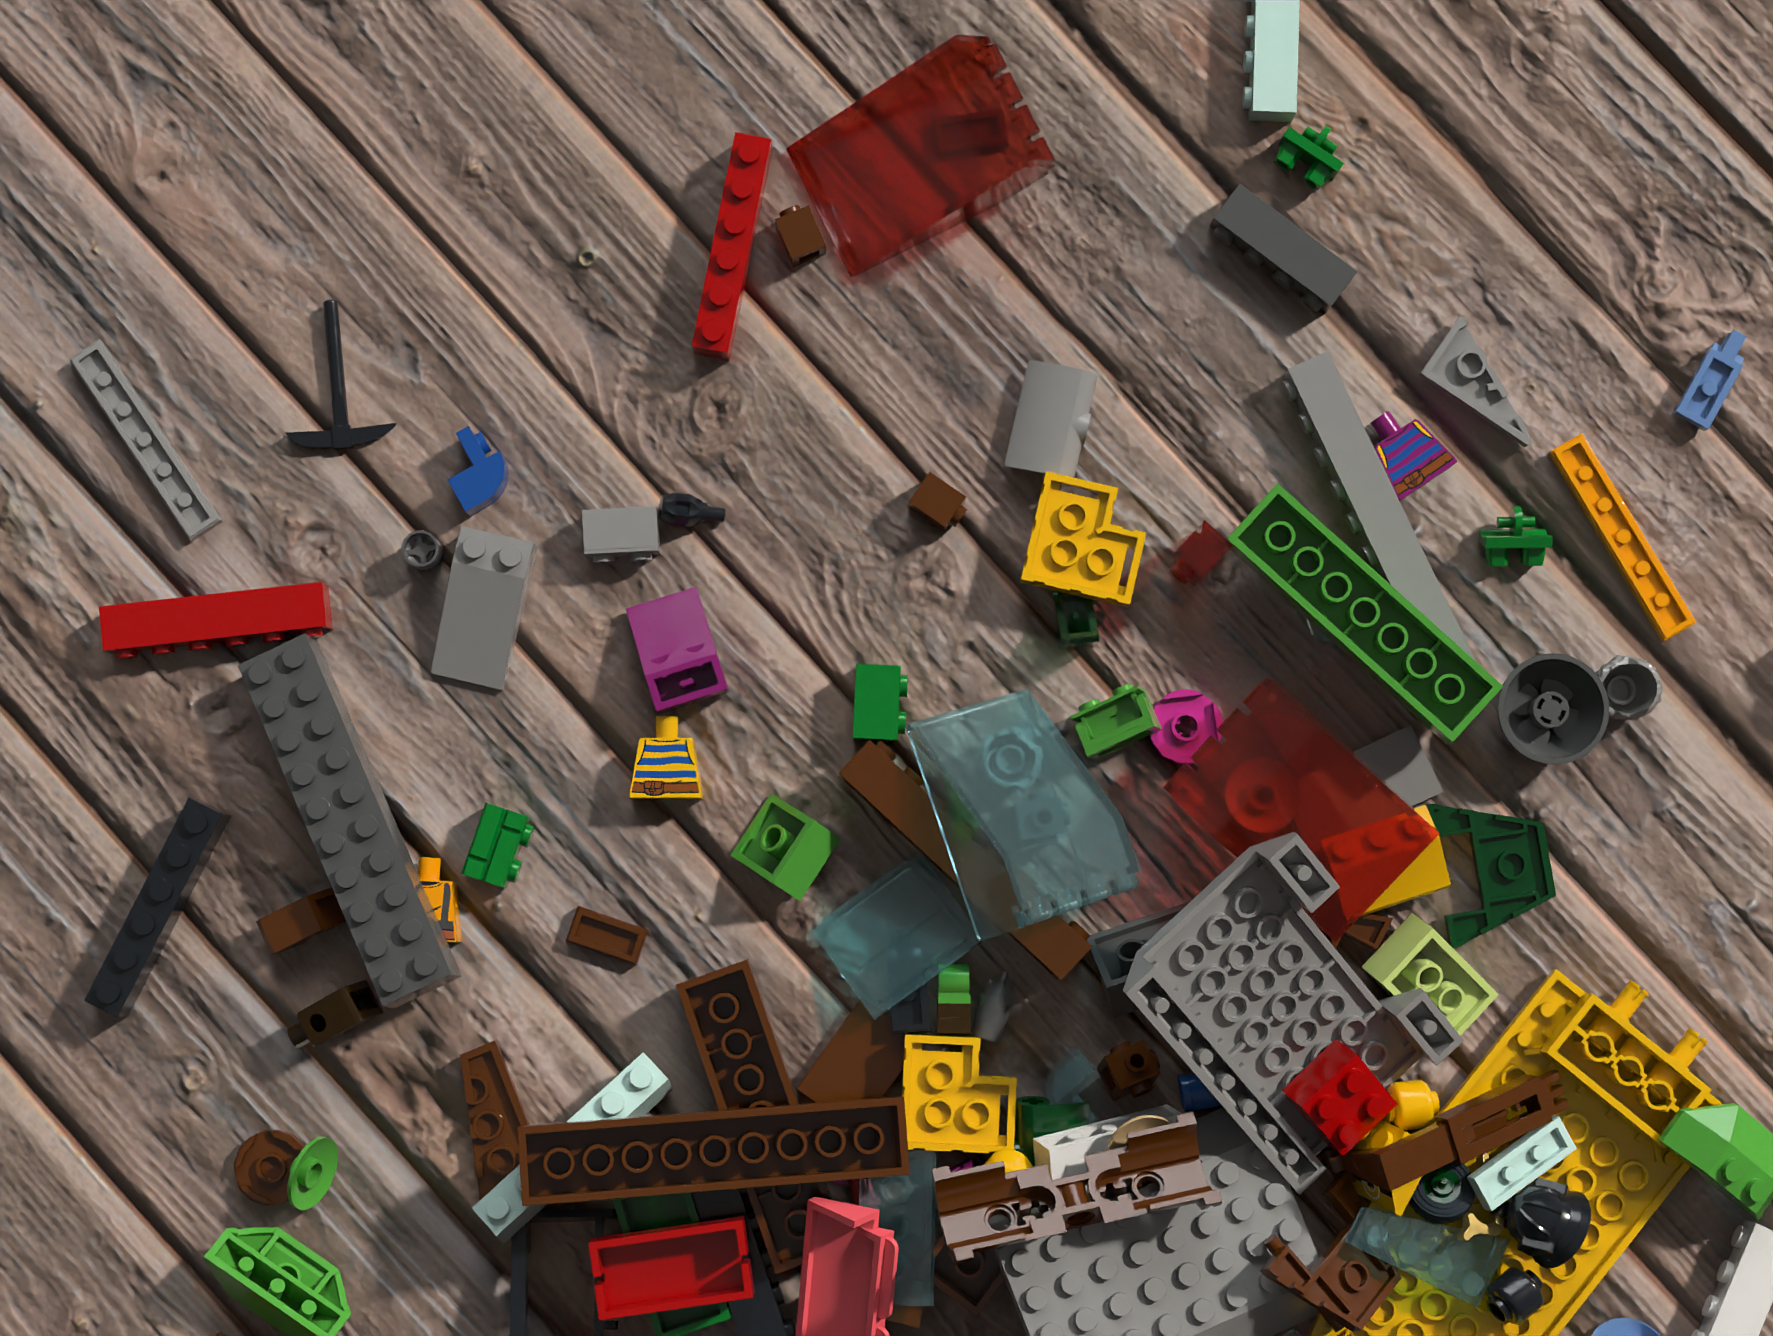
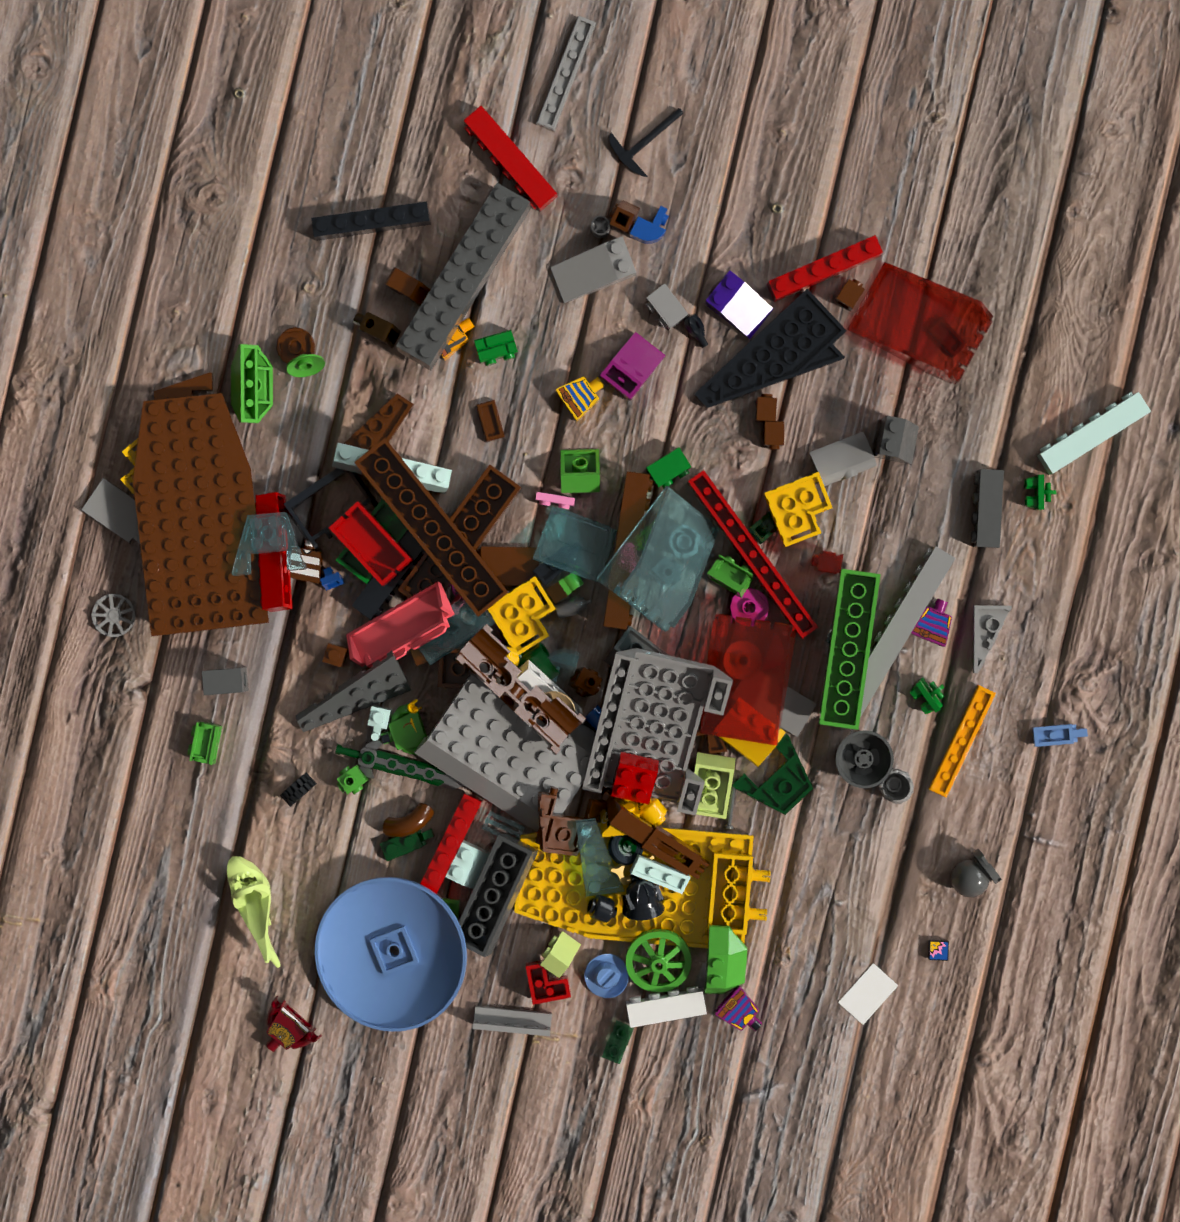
camera: 65 degrees right, 5 degrees up
(430, 501) = (623, 215): none -> reddish brown brick
(696, 418) = (739, 304): none -> slope
(815, 391) = (787, 347): none -> black wing
(815, 908) = (562, 501): none -> bright pink plate
(888, 486) = (766, 408): none -> reddish brown brick
(1077, 318) = (896, 440): none -> dark grey slope
(1105, 664) = (752, 554): none -> red brick
(1512, 998) = (731, 804): none -> dark grey piece
(1654, 1258) = (658, 957): none -> bright green wheel

